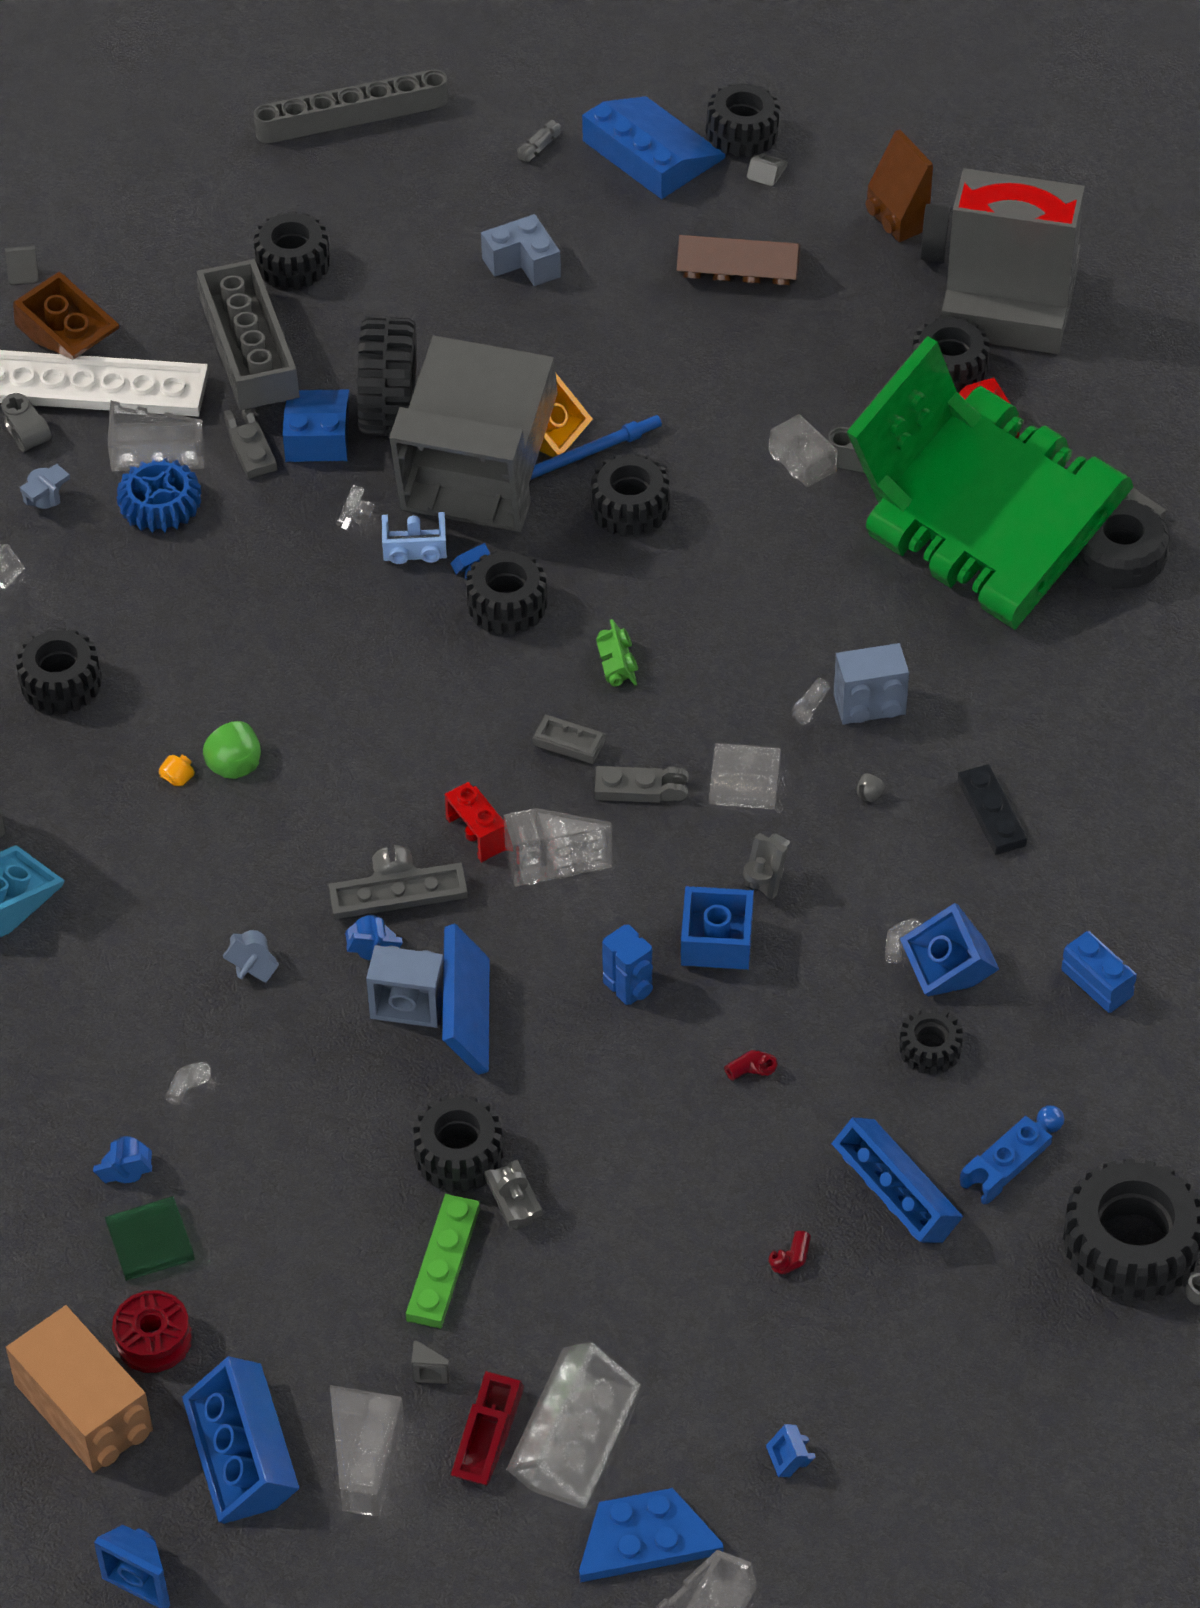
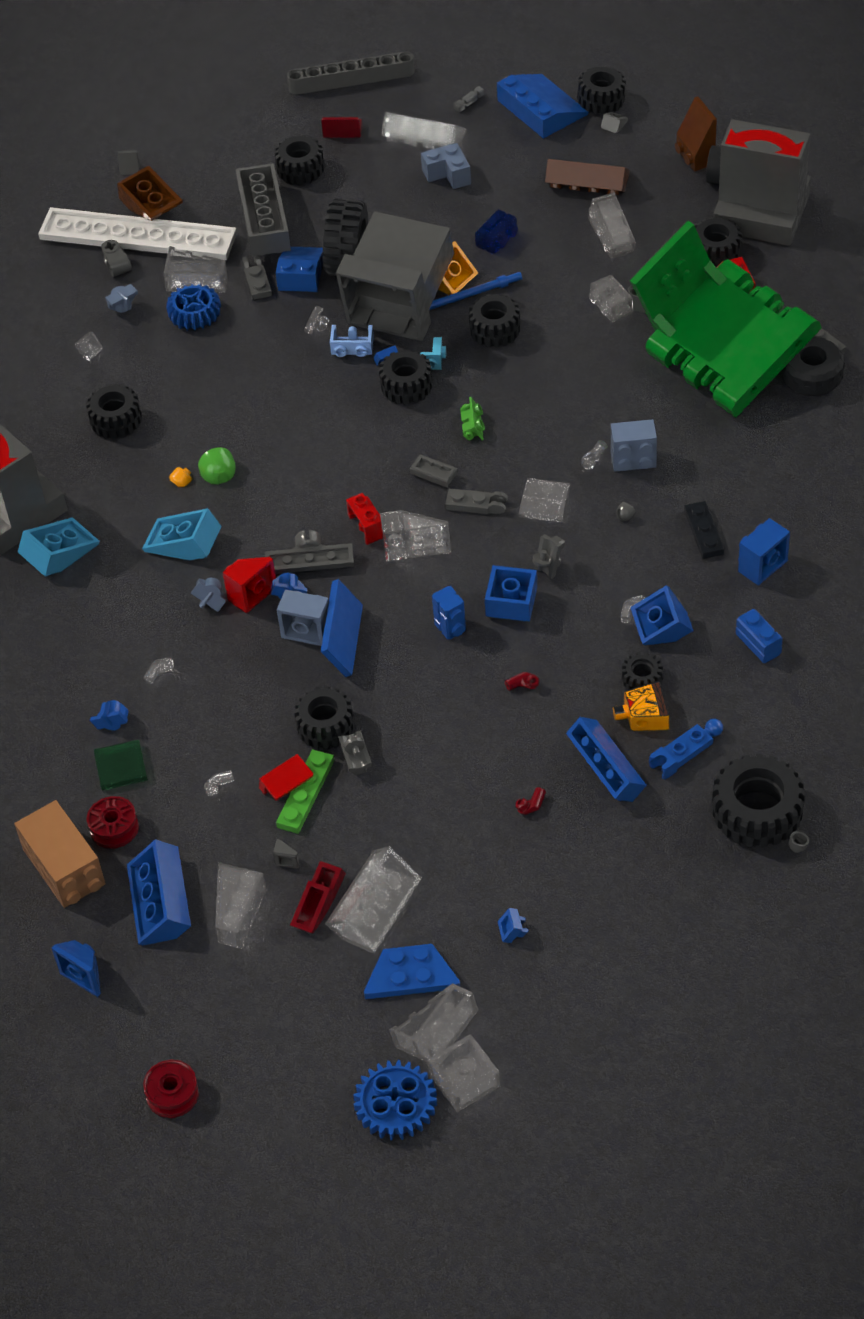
camera: 10 degrees right, 0 degrees up
(196, 864) = (183, 535): none -> dark azure slope
(303, 1252) = (217, 779): none -> clear arm
(311, 934) = (249, 581): none -> red slope
(348, 195) = (341, 127): none -> dark red panel
(412, 1242) = (285, 777): none -> red panel
(475, 196) = (422, 131): none -> clear slope
(551, 551) = (435, 357): none -> medium azure bracket
(612, 353) = (496, 232): none -> clear blue brick
(788, 336) = (611, 225): none -> clear wedge
(943, 1096) = (644, 708): none -> light orange torso
(1089, 839) = (763, 551): none -> blue brick

